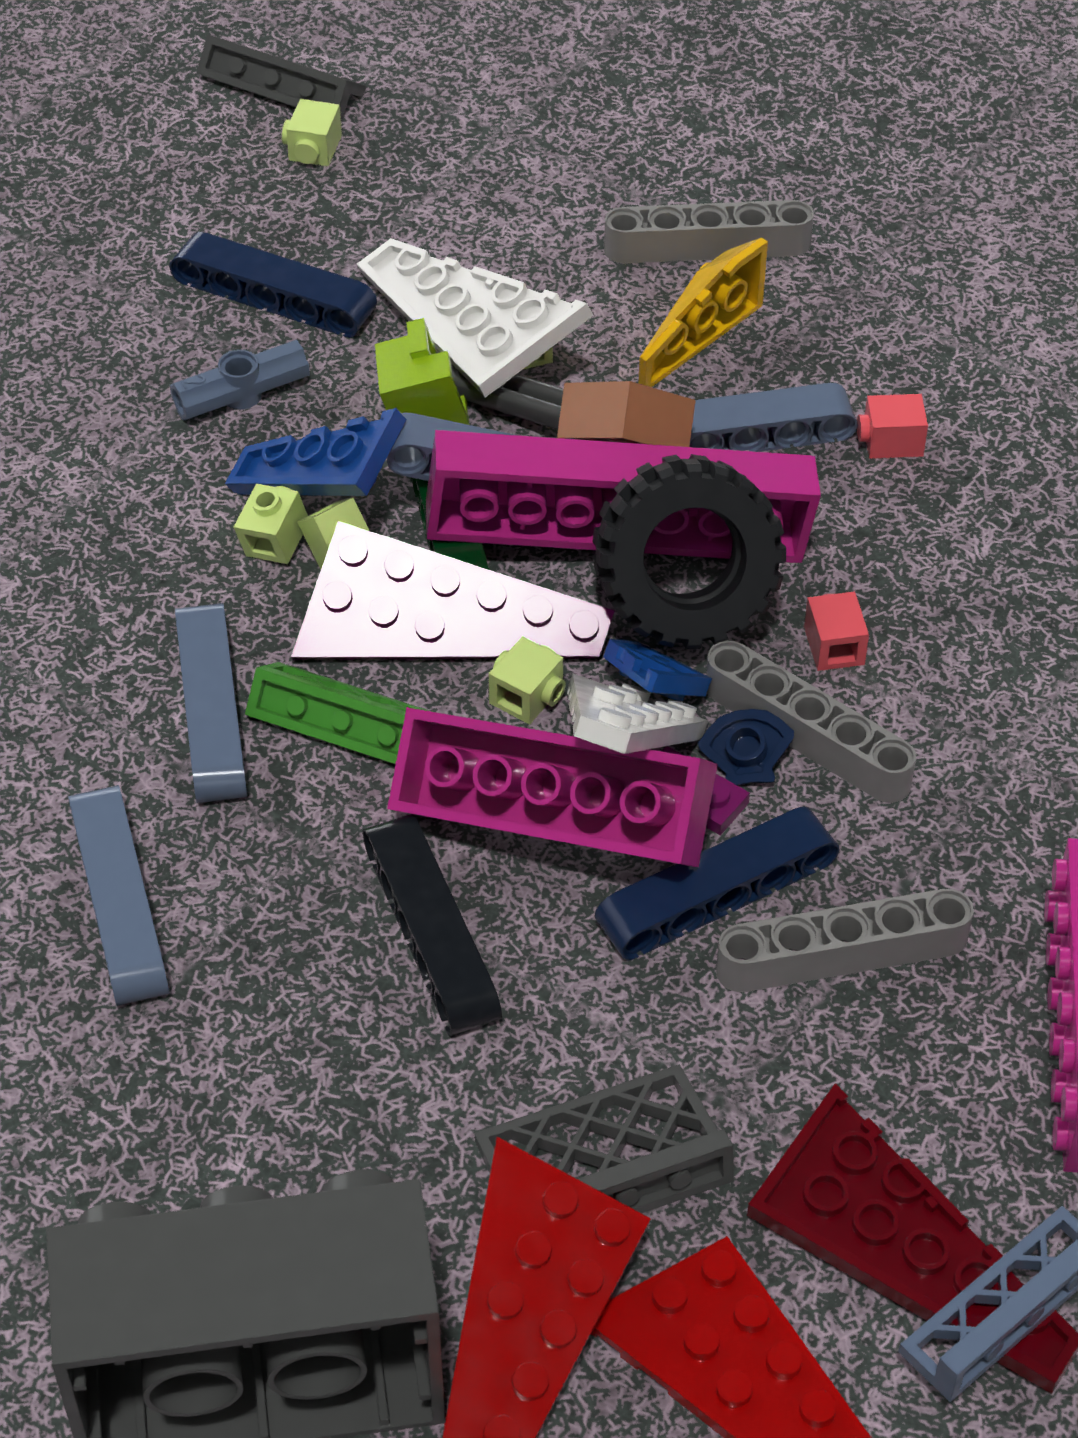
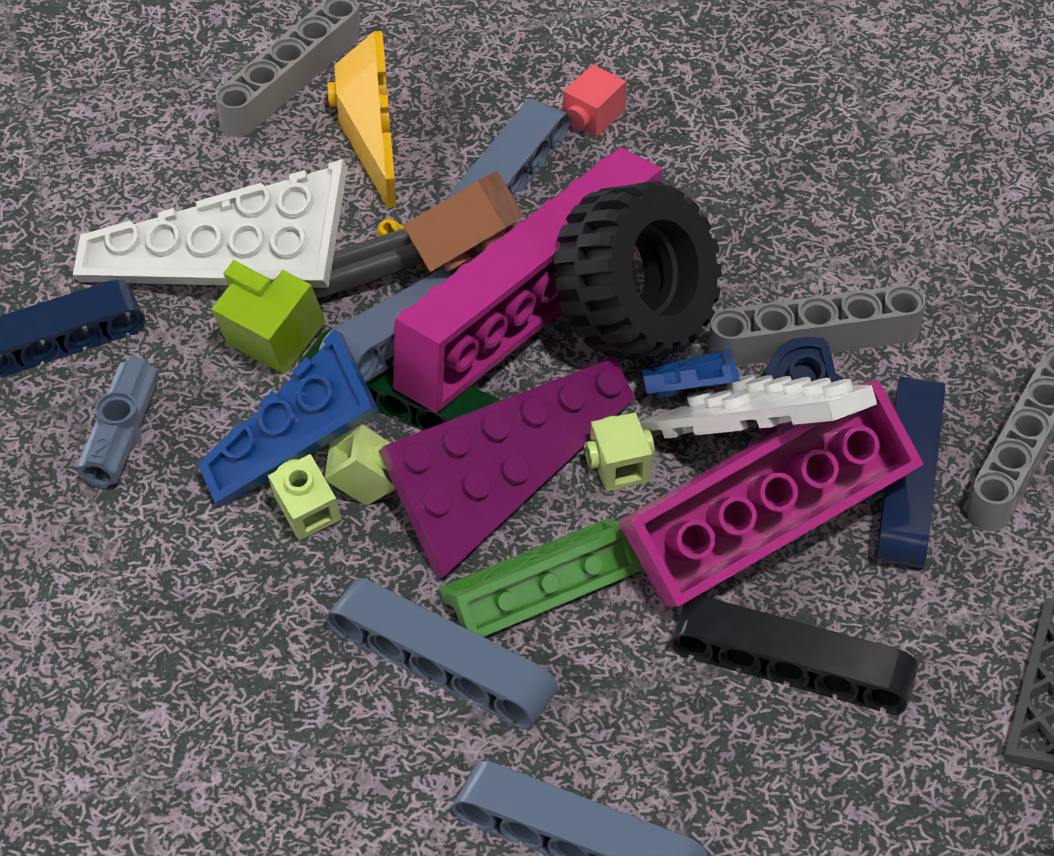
camera: 50 degrees left, 0 degrees up
(836, 631) = (750, 256): coral brick -> none

